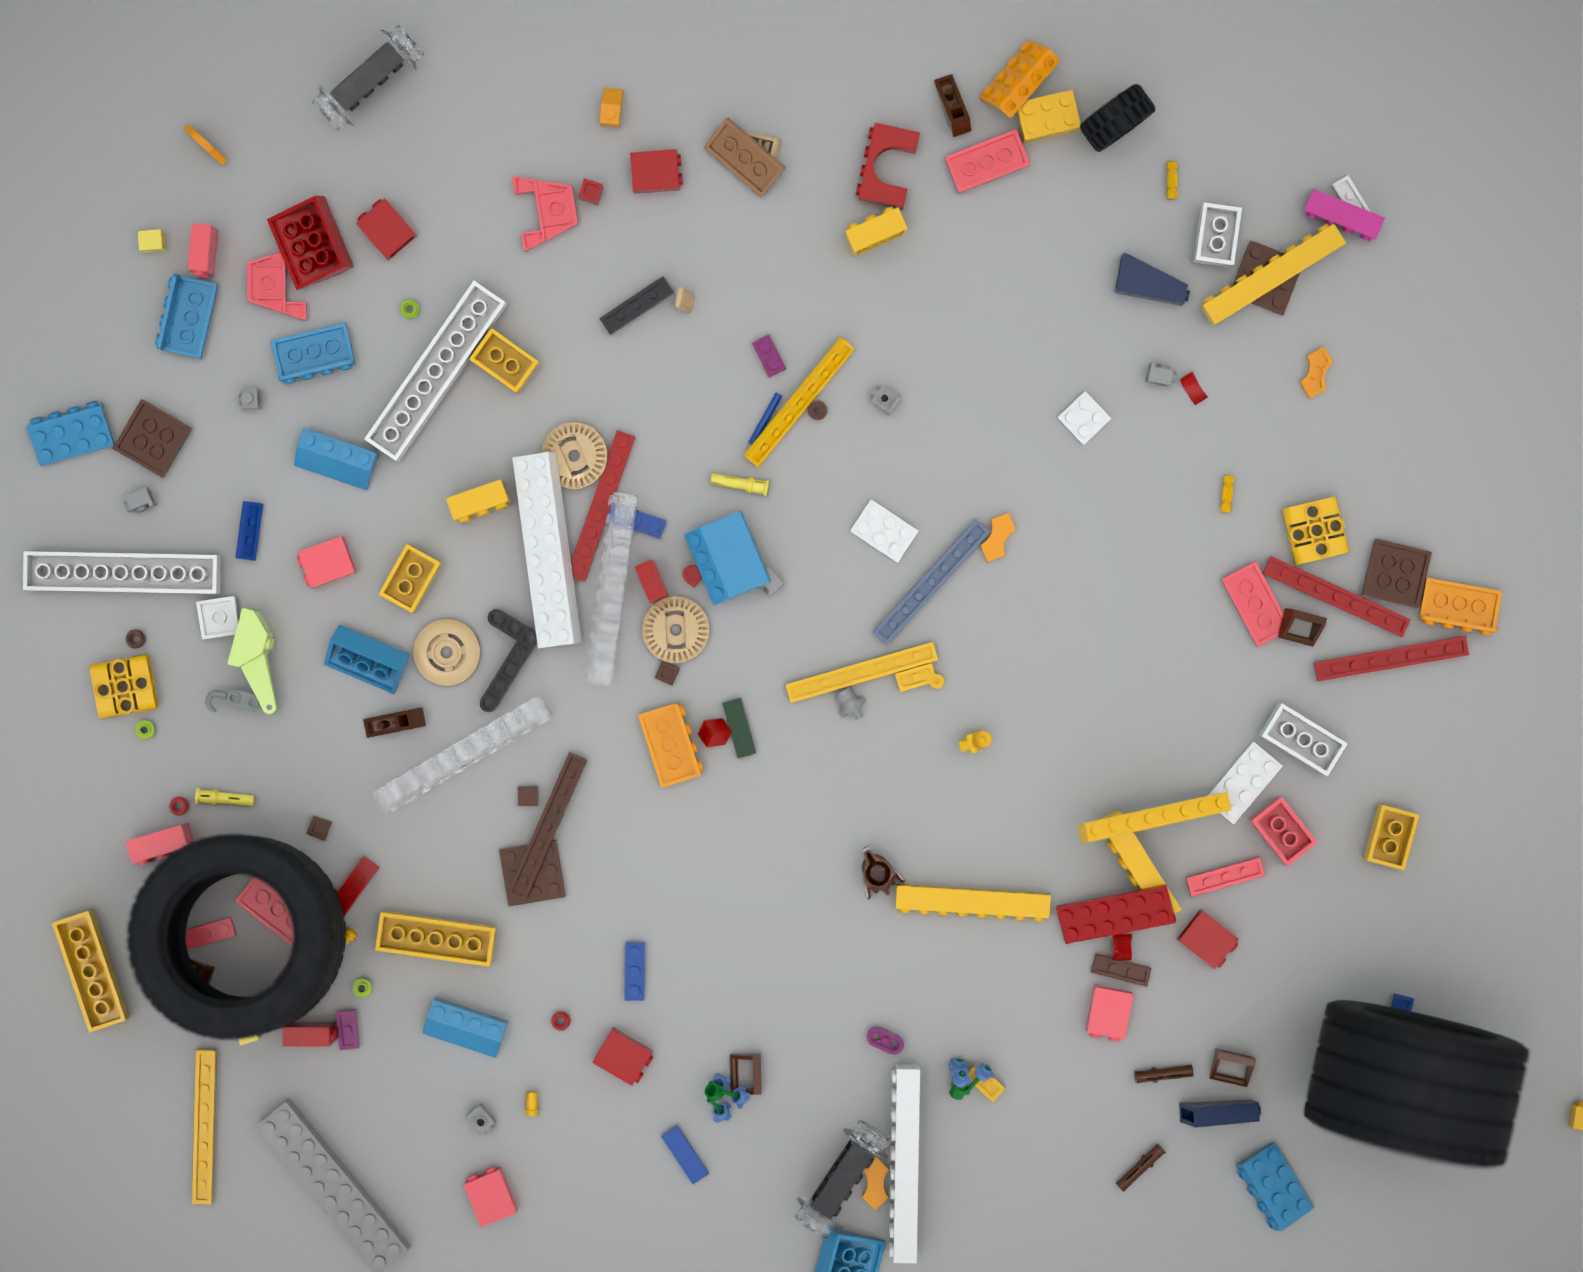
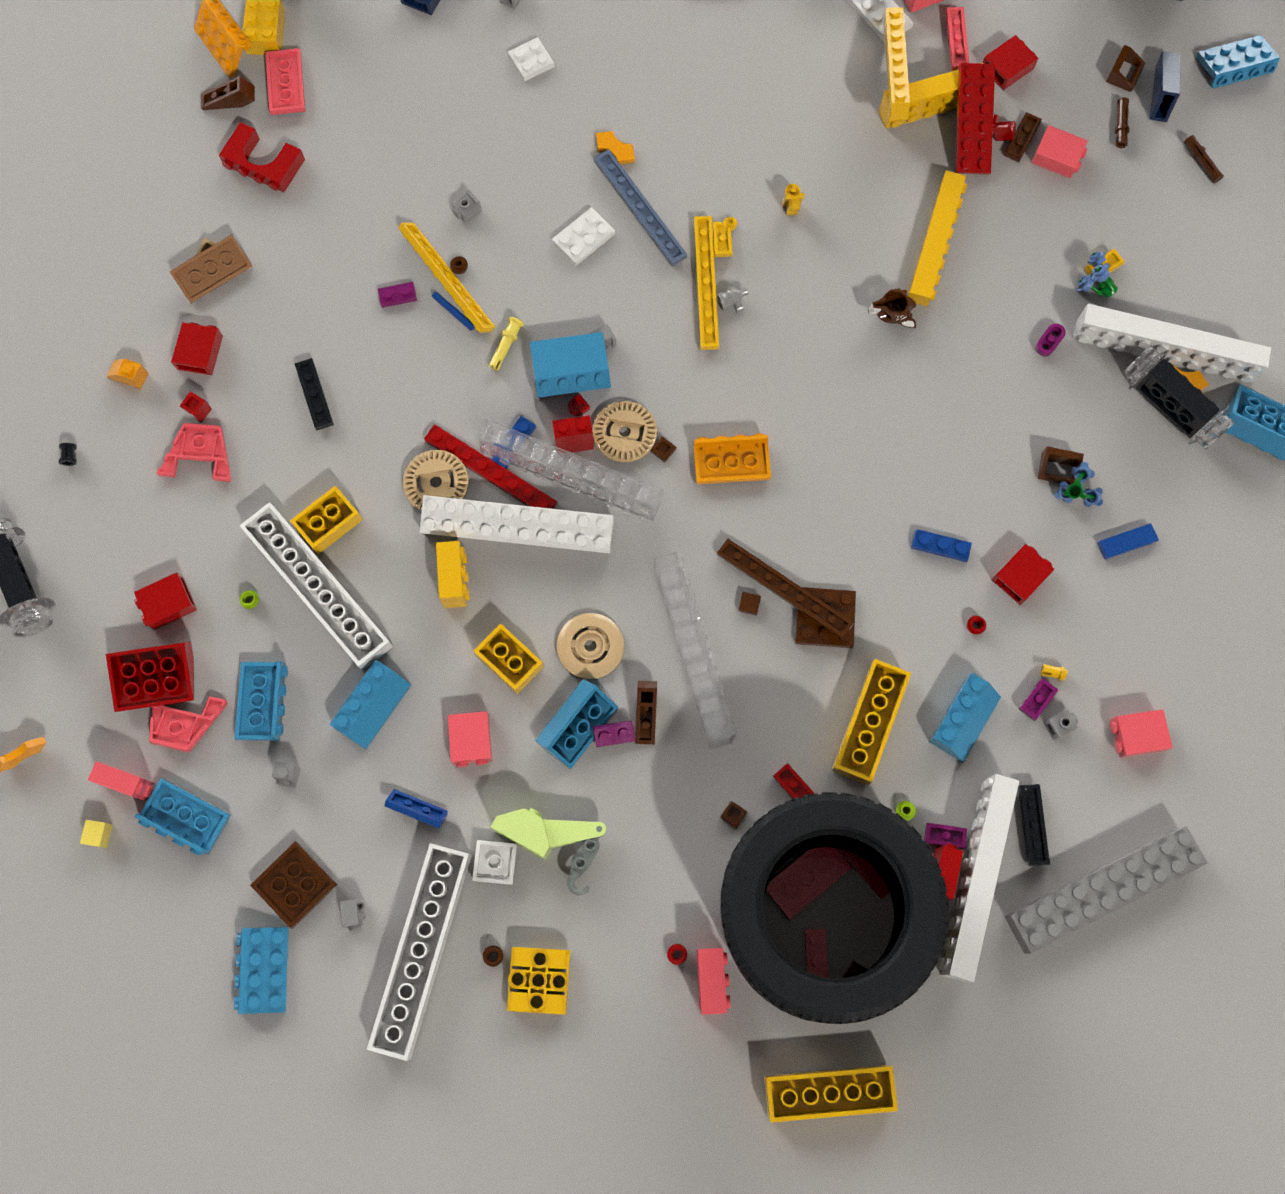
camera: 75 degrees left, 15 degrees down
(151, 729) = (596, 970): lime plate -> none
(204, 1126) = (1020, 1013): yellow plate -> none
(215, 797) = (677, 912): light yellow pin -> none
(313, 1068) = (979, 879): none -> white brick
(366, 697) = (614, 733): none -> magenta plate
(378, 1110) = (1034, 825): none -> black plate
(500, 1093) = (1038, 699): none -> magenta plate
(517, 81) = (67, 454): none -> black bush
(517, 664) = (613, 585): black beam -> none
(684, 301) = (322, 351): tan slope -> none
(714, 732) = (730, 419): red panel -> none
(739, 726) = (731, 398): dark green tile -> none
(875, 231) = (314, 176): yellow brick -> none

